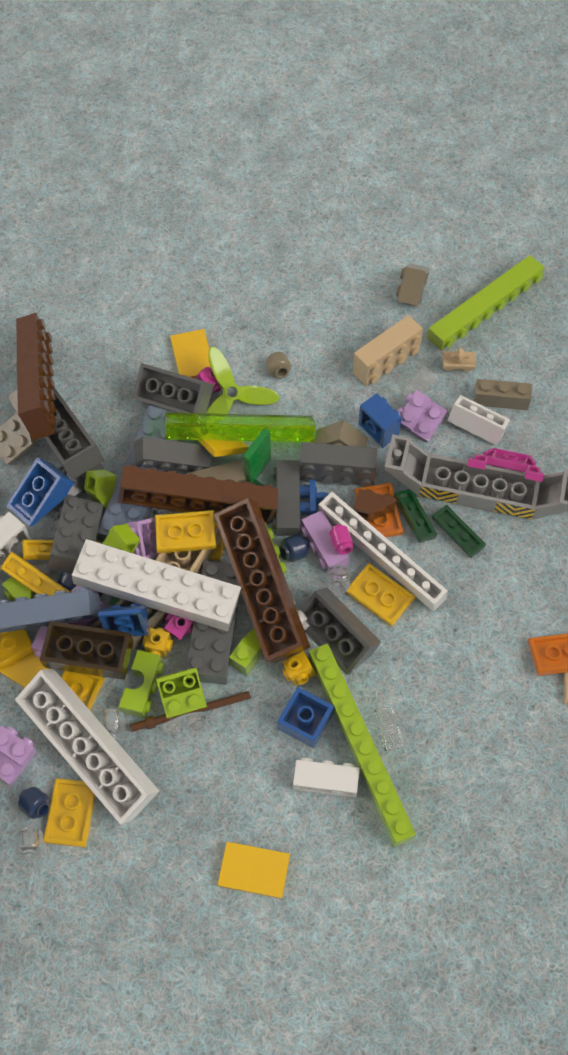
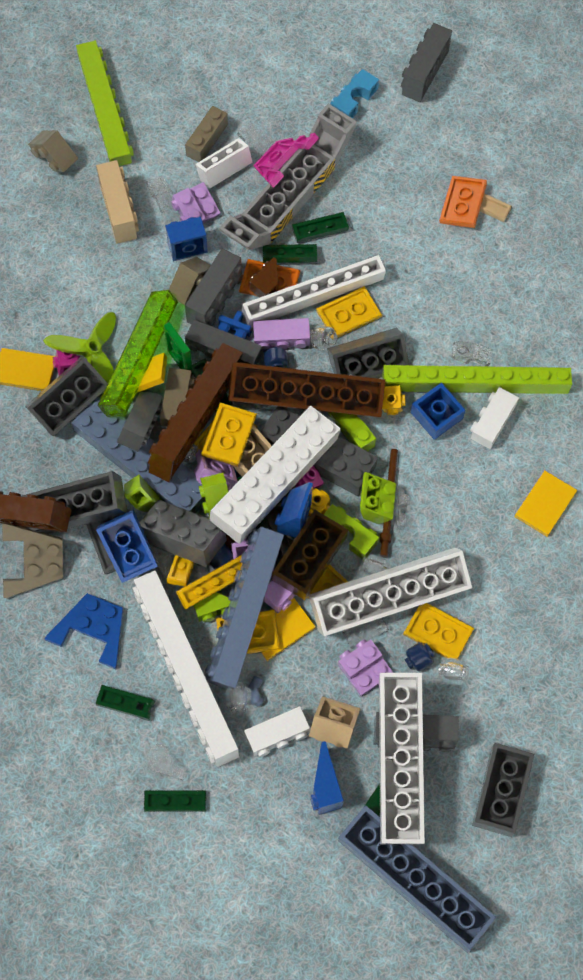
camera: 70 degrees left, 5 degrees up
(278, 365) = (79, 299): dark tan head -> none
(341, 539) = (293, 315): dark pink brick -> none
(459, 360) = (154, 151): tan hips -> none

